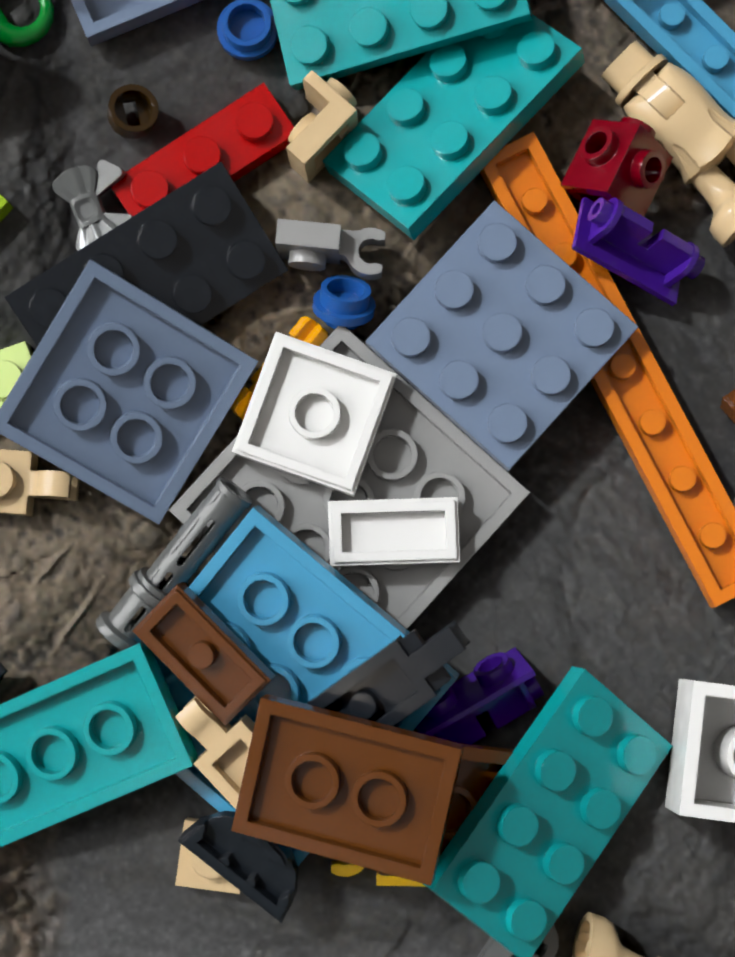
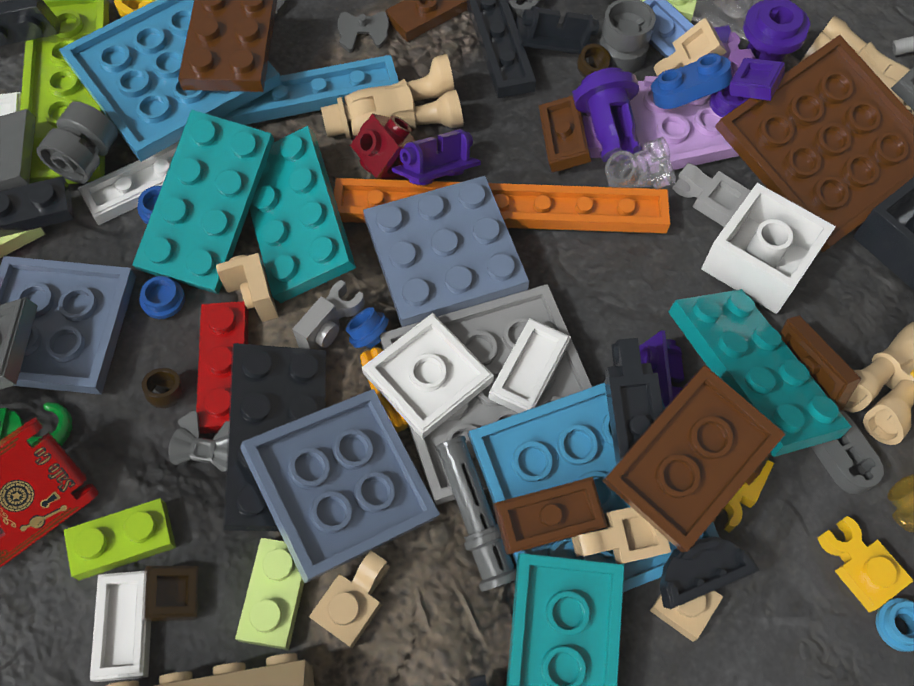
camera: 65 degrees left, 20 degrees down
(603, 888) = (823, 363): none -> reddish brown plate

